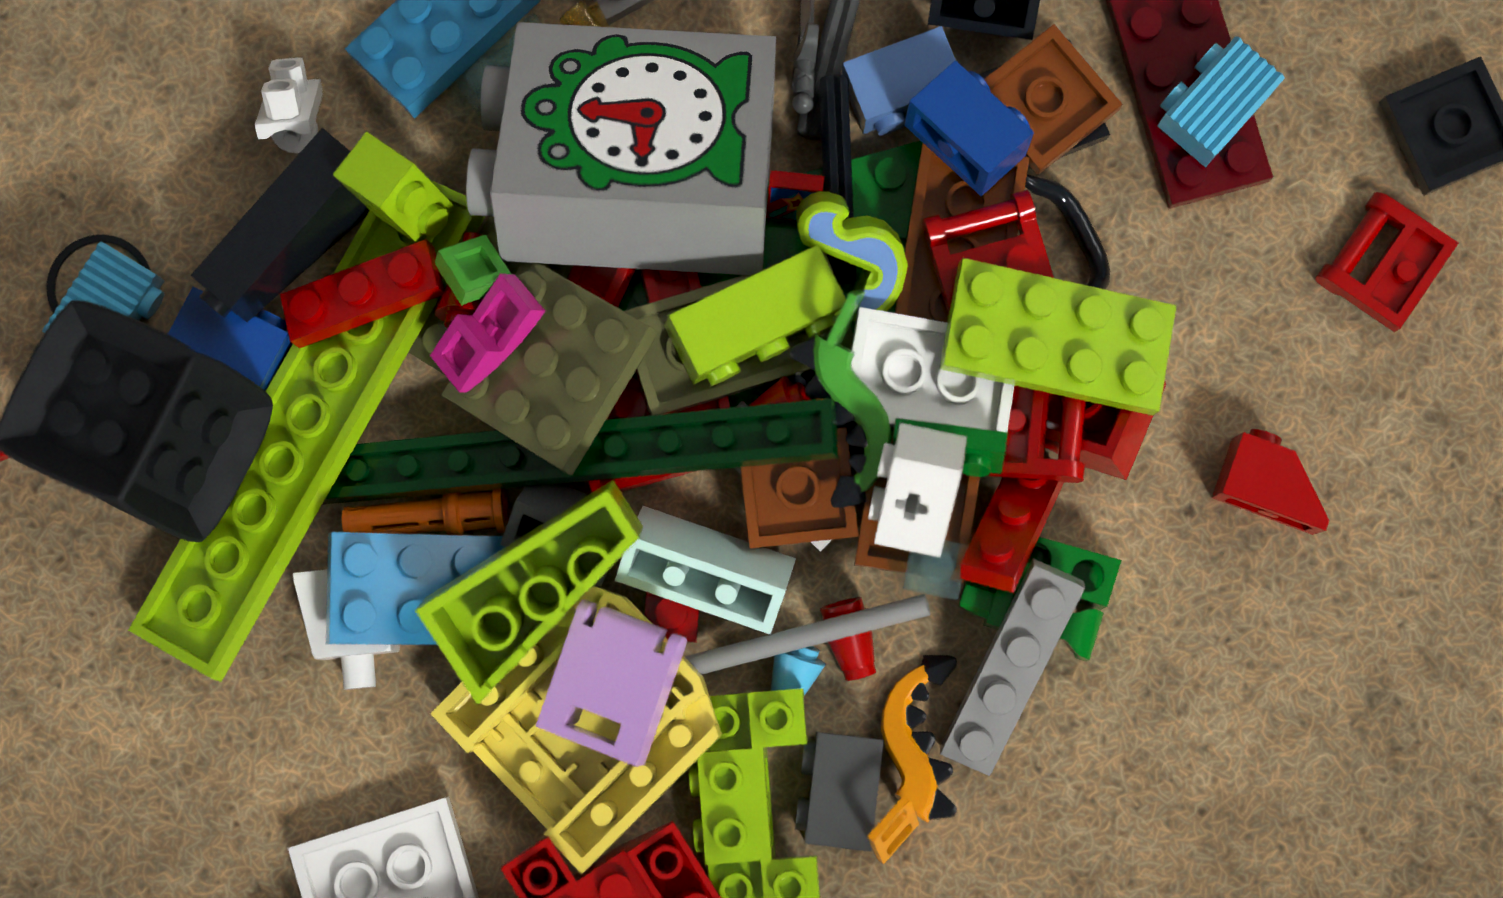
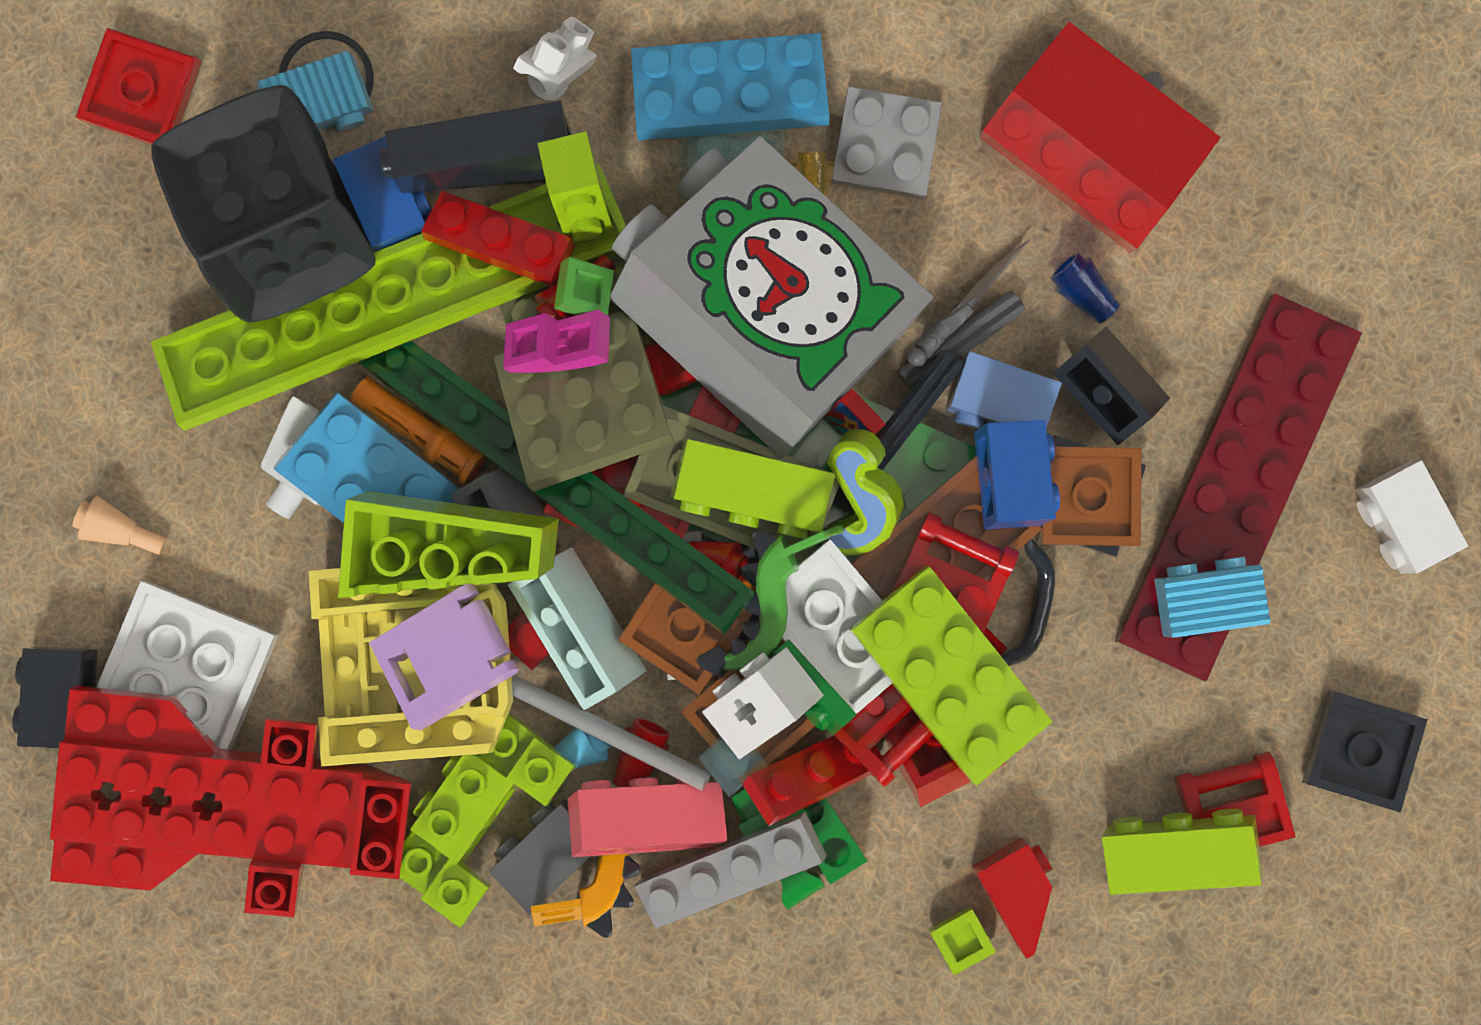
camera: 40 degrees right, 5 degrees up
(217, 824) = (106, 524): none -> light nougat cone
(901, 682) = (645, 817): none -> coral brick
(1258, 565) = (962, 940): none -> lime plate
(1378, 330) = (1182, 853): none -> lime brick

